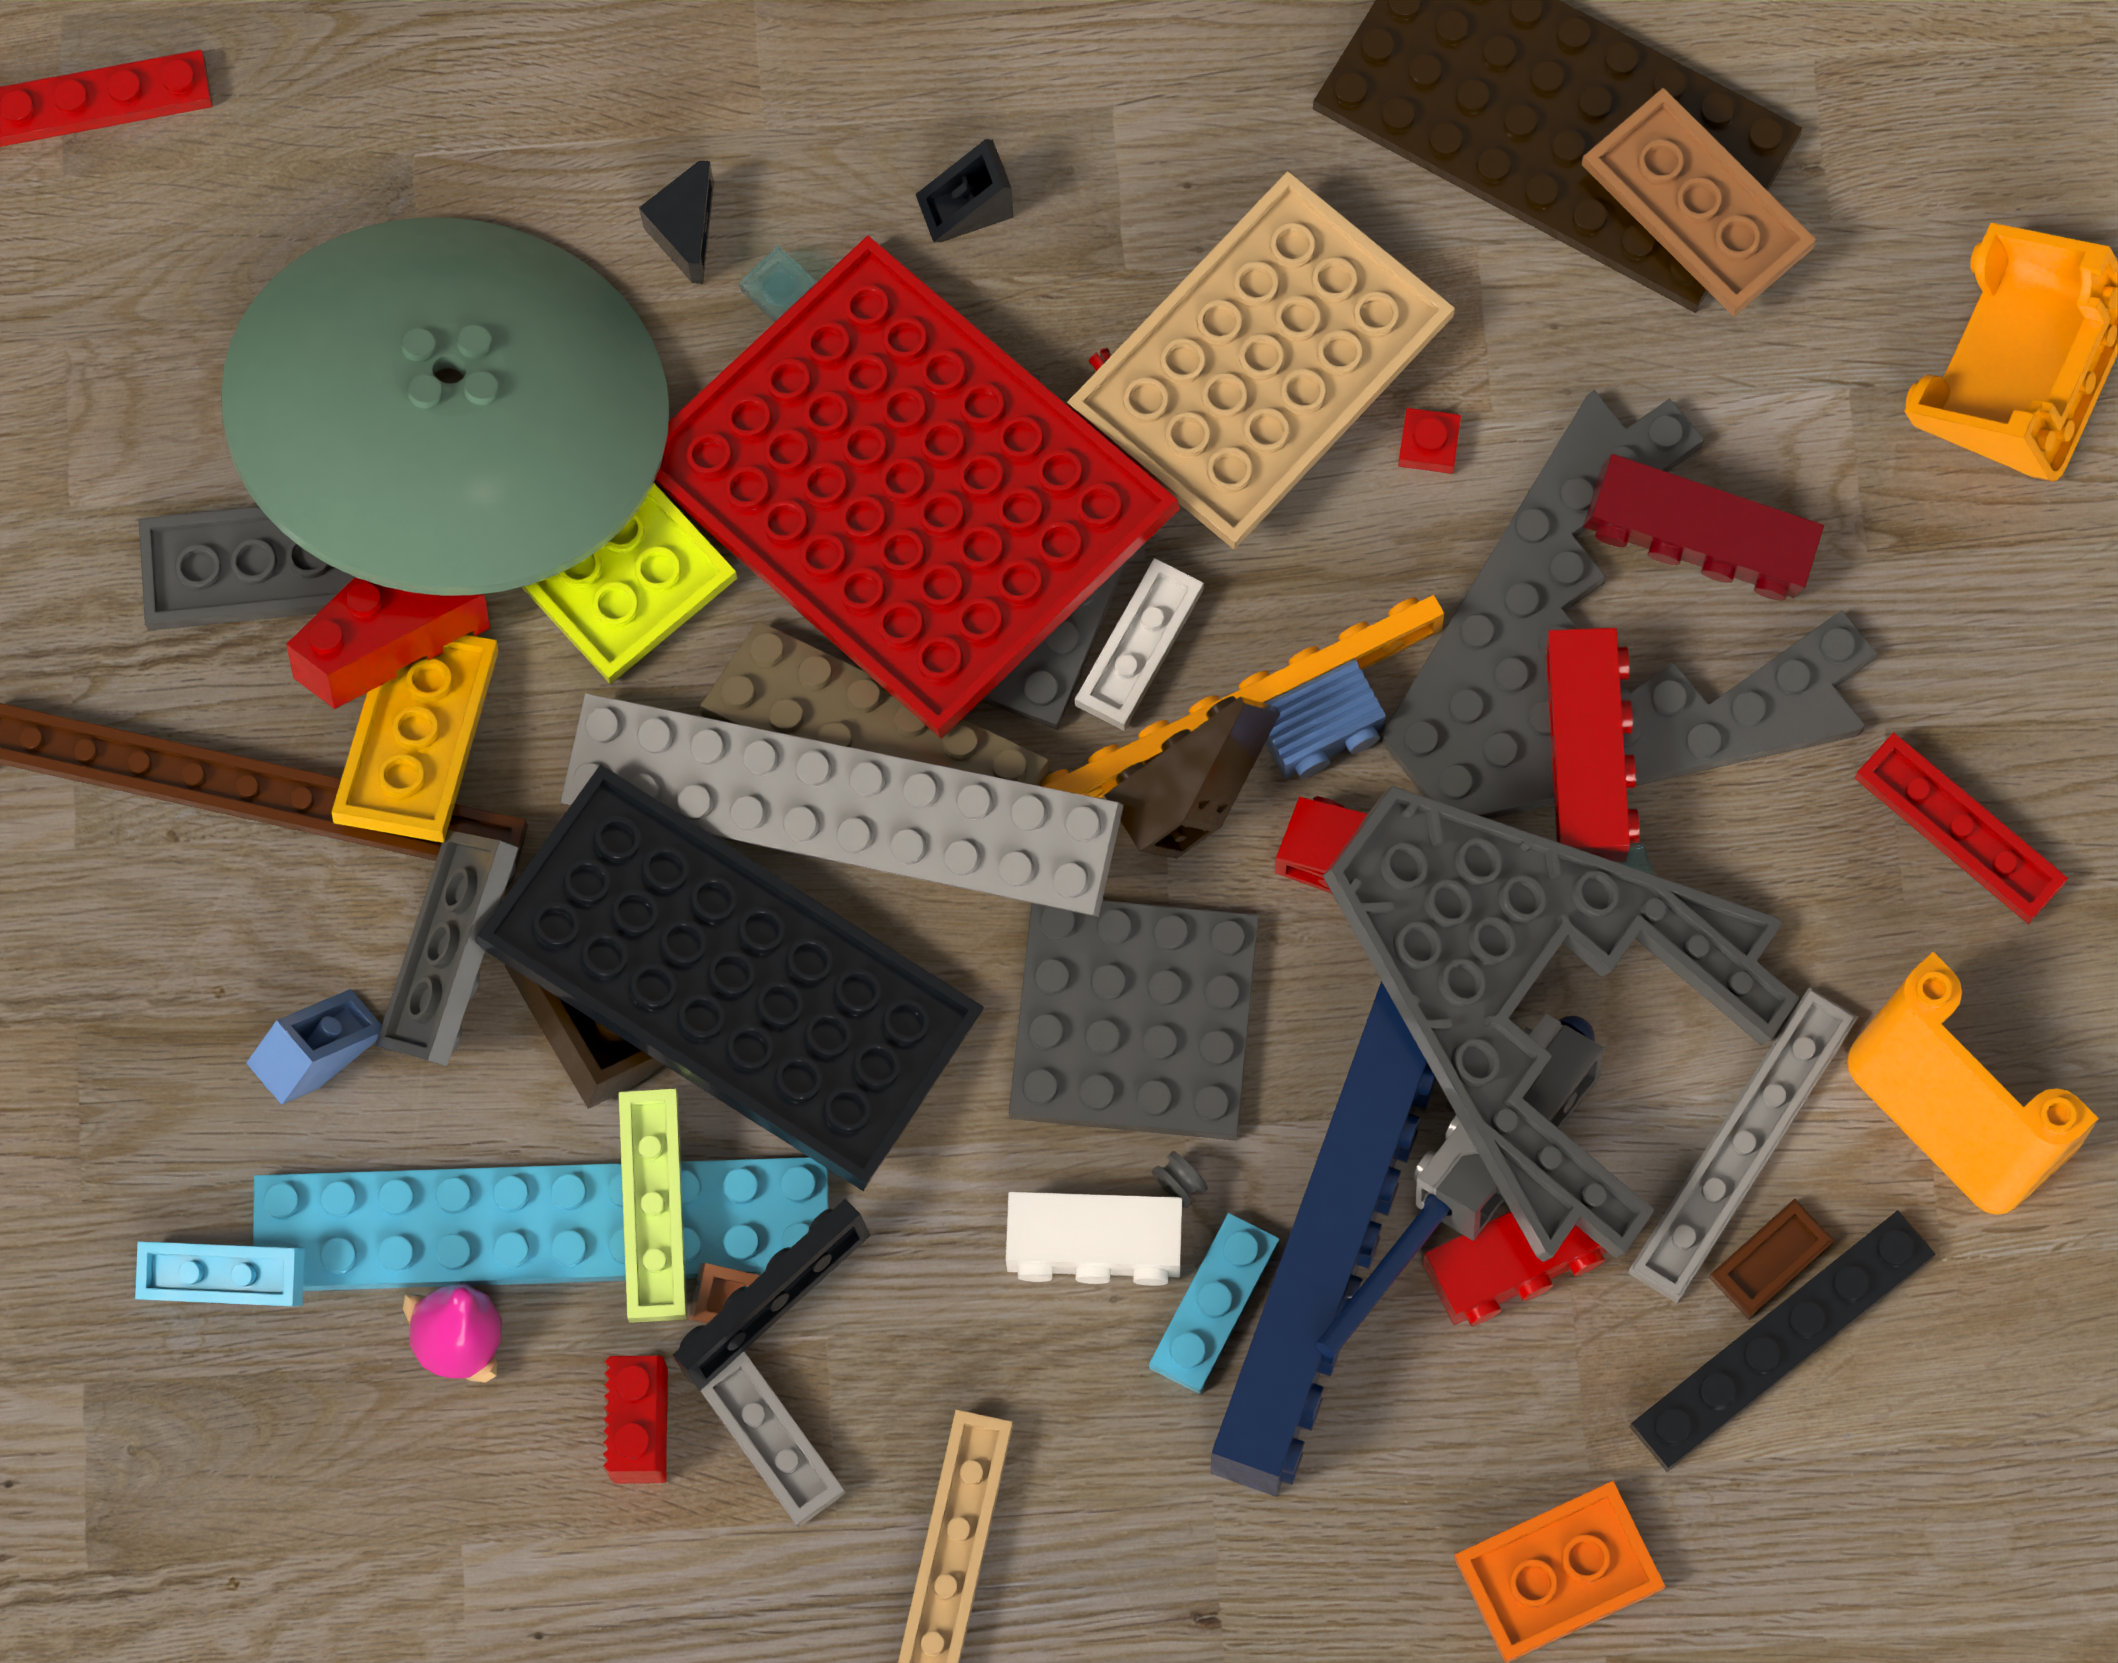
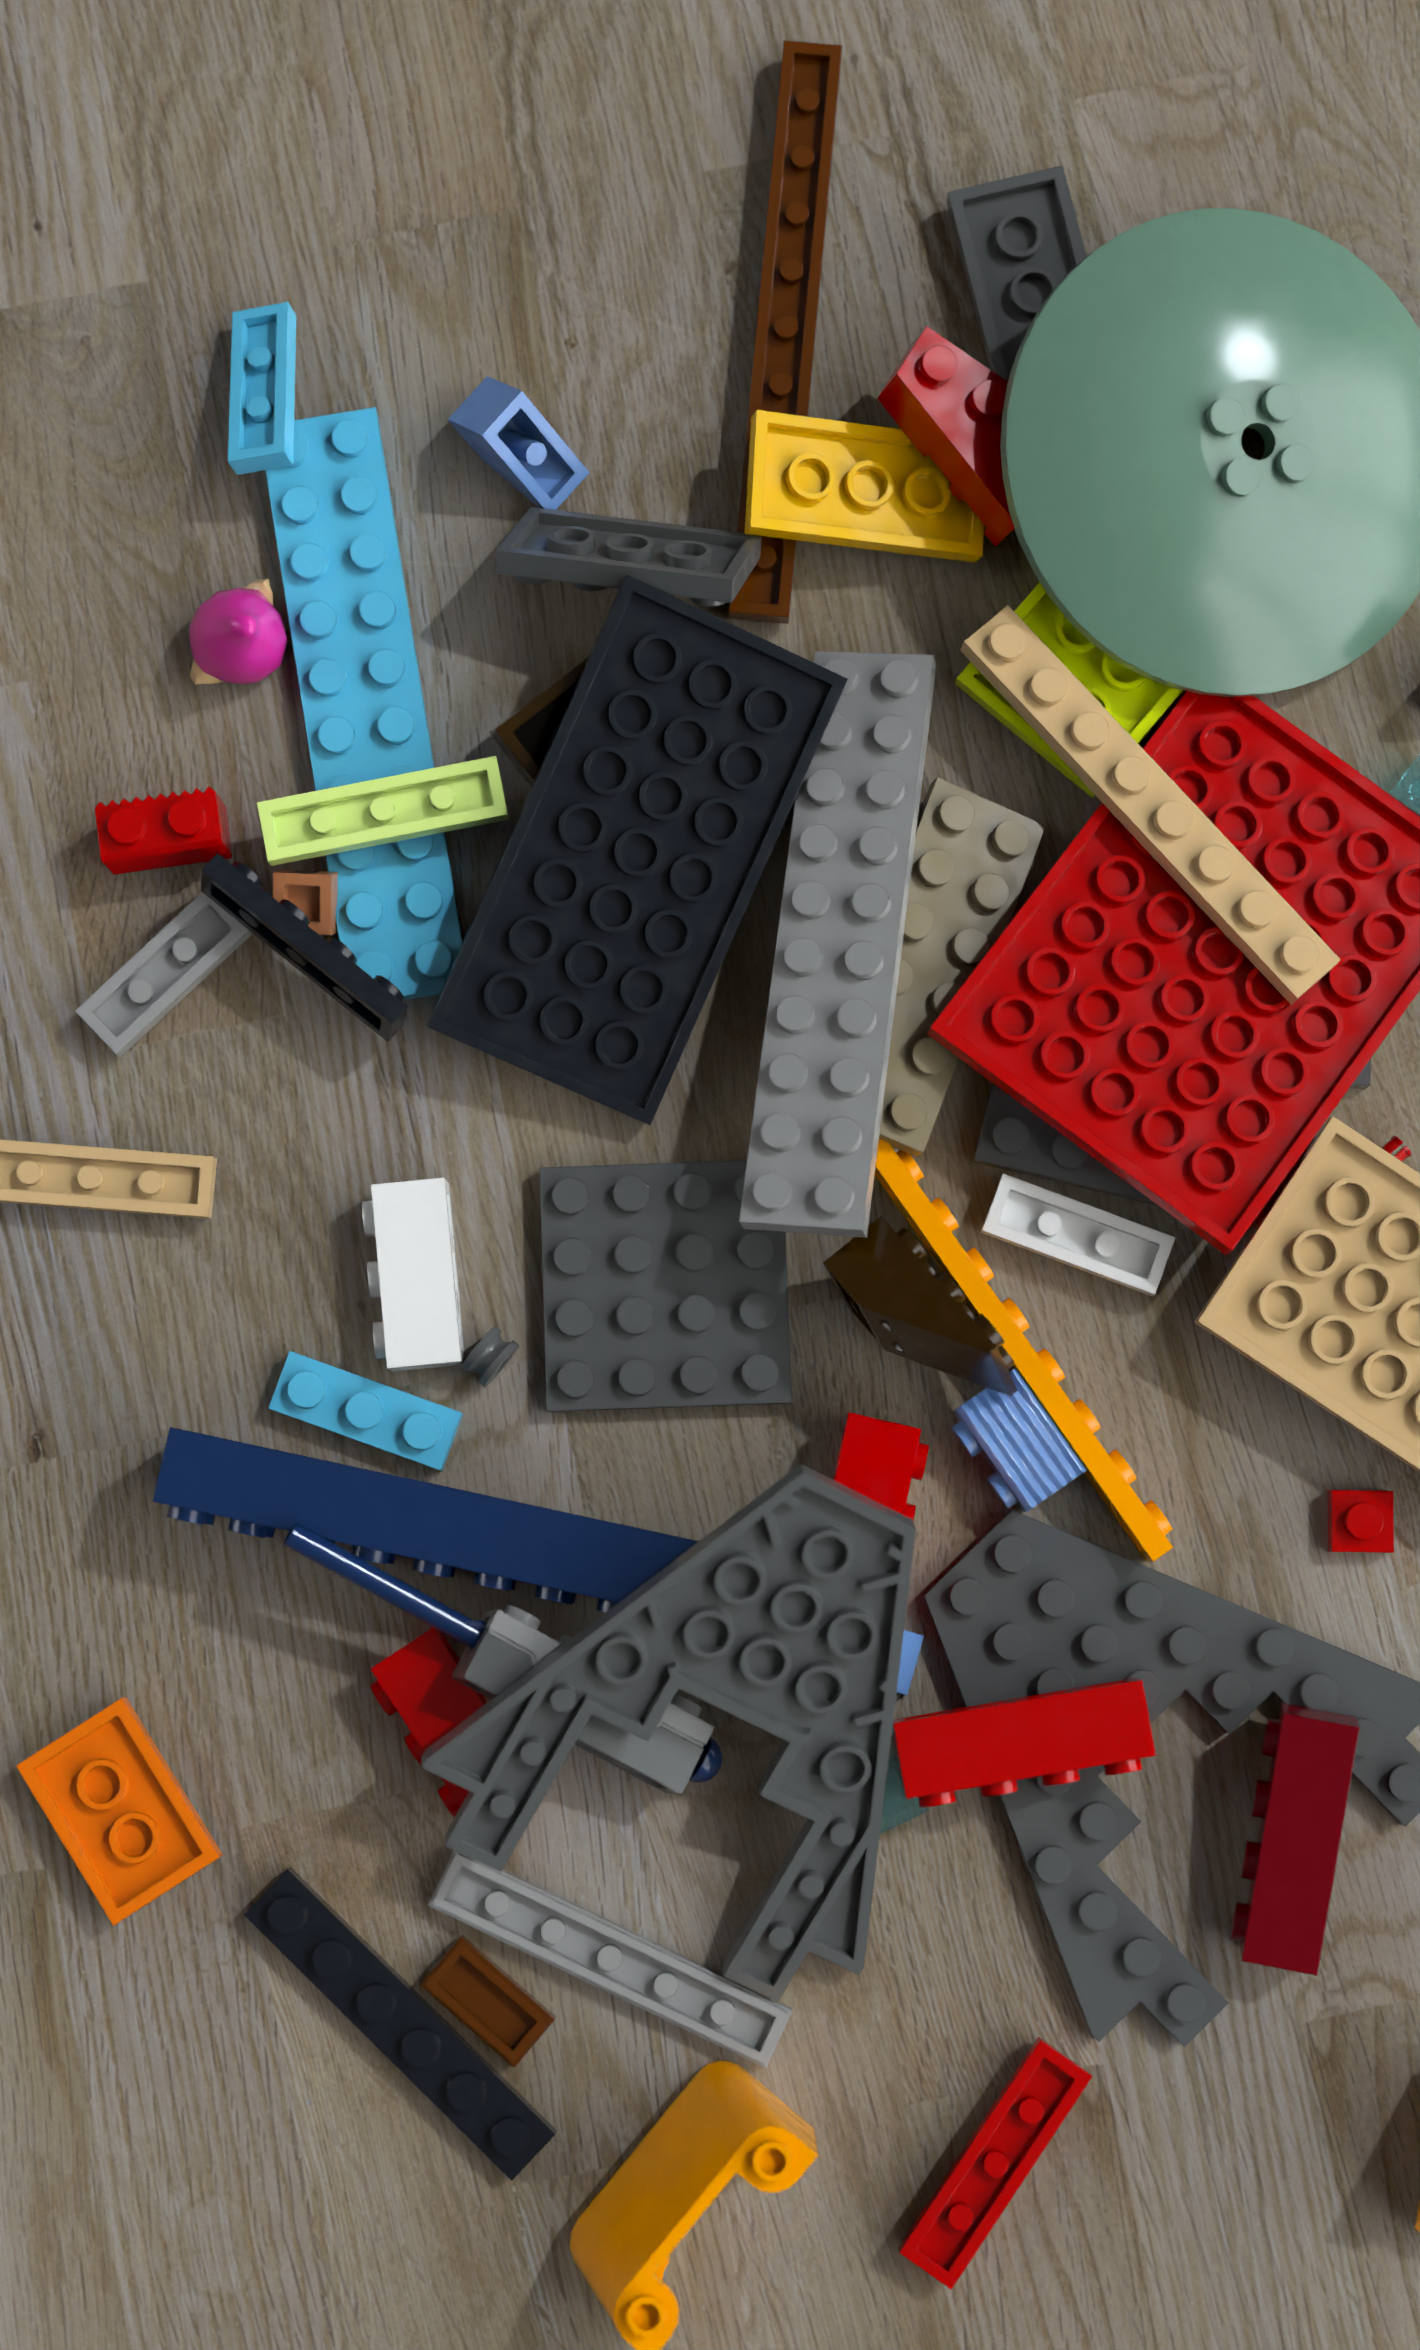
camera: 80 degrees right, 10 degrees up
(757, 520) = (1149, 805): none -> tan plate

